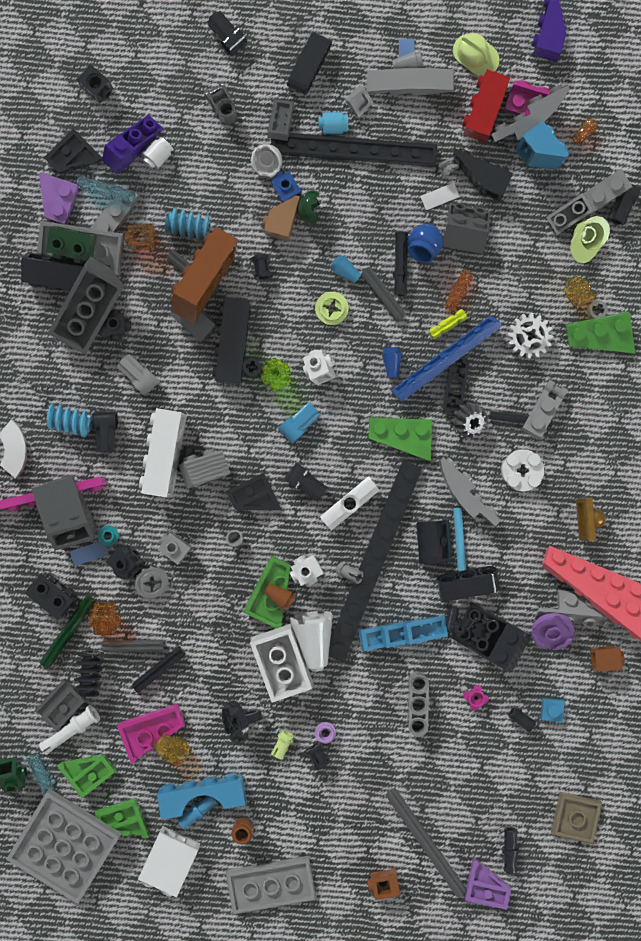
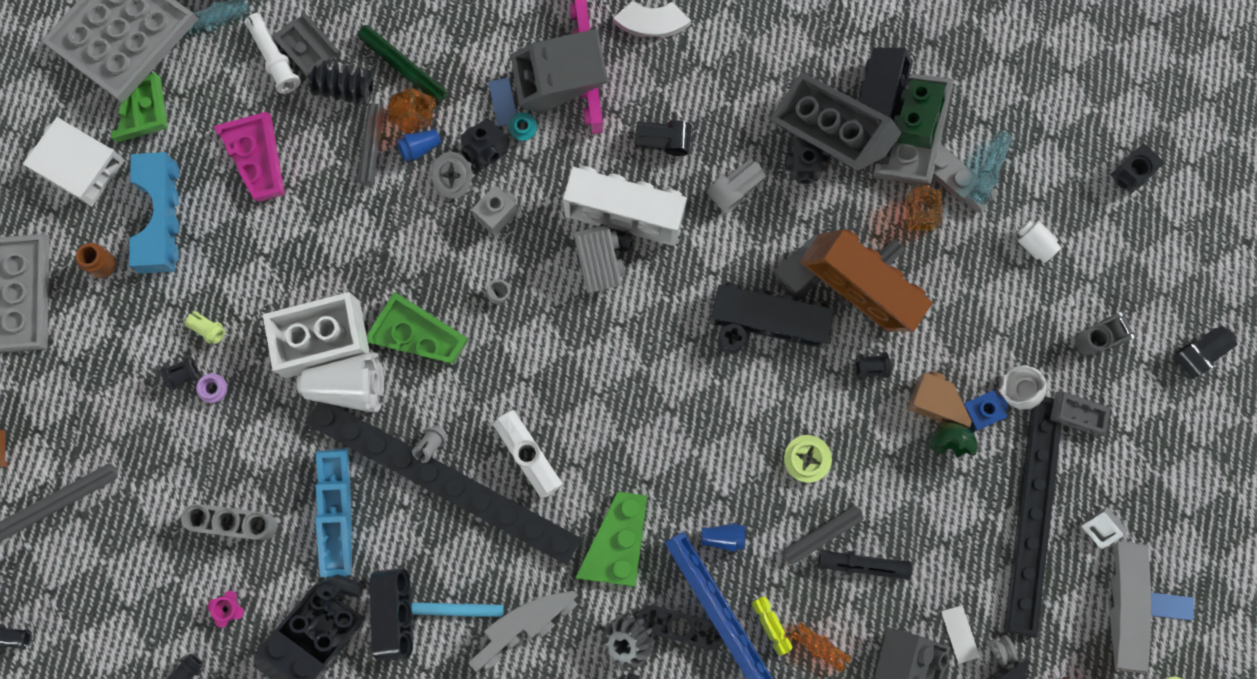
camera: 90 degrees right, 10 degrees down
(51, 595) = (452, 47): black brick -> none
(57, 198) = (983, 107): medium lavender wing -> none
(68, 421) = (682, 89): medium azure piece -> none
(72, 154) = (1042, 130): black wing -> none
(87, 772) = (212, 69): bright green wing -> none
(130, 144) = (1053, 207): dark purple slope -> none
(130, 612) = (417, 144): none -> blue cone
(158, 669) = (334, 174): black axle -> none
(172, 749) = (222, 179): clear yellow brick -> none
(187, 225) = (937, 269): medium azure piece -> none
(197, 811) = (133, 203): dark azure pin -> none
(236, 720) = (246, 268): black tile -> none
(254, 495) = (554, 324): black wing -> none
(276, 382) = (712, 376): clear neon green brick -> none
(281, 597) = (409, 342): dark orange cone -> none
(295, 426) = (645, 390): dark azure piece -> none
(303, 480) = (569, 390): black piece -> none
(309, 63) = (1160, 462): black beam -> none
(310, 563) = (445, 392): white brick -> none
(319, 366) = (725, 430): white brick -> none
(333, 122) = (1073, 487): medium azure brick -> none
(345, 269) = (862, 483): dark azure cone -> none
(410, 60) = (1161, 608): light grey cone -> none
(425, 243) = (893, 602): blue piece -> none
(434, 542) = (457, 571): black panel -> none

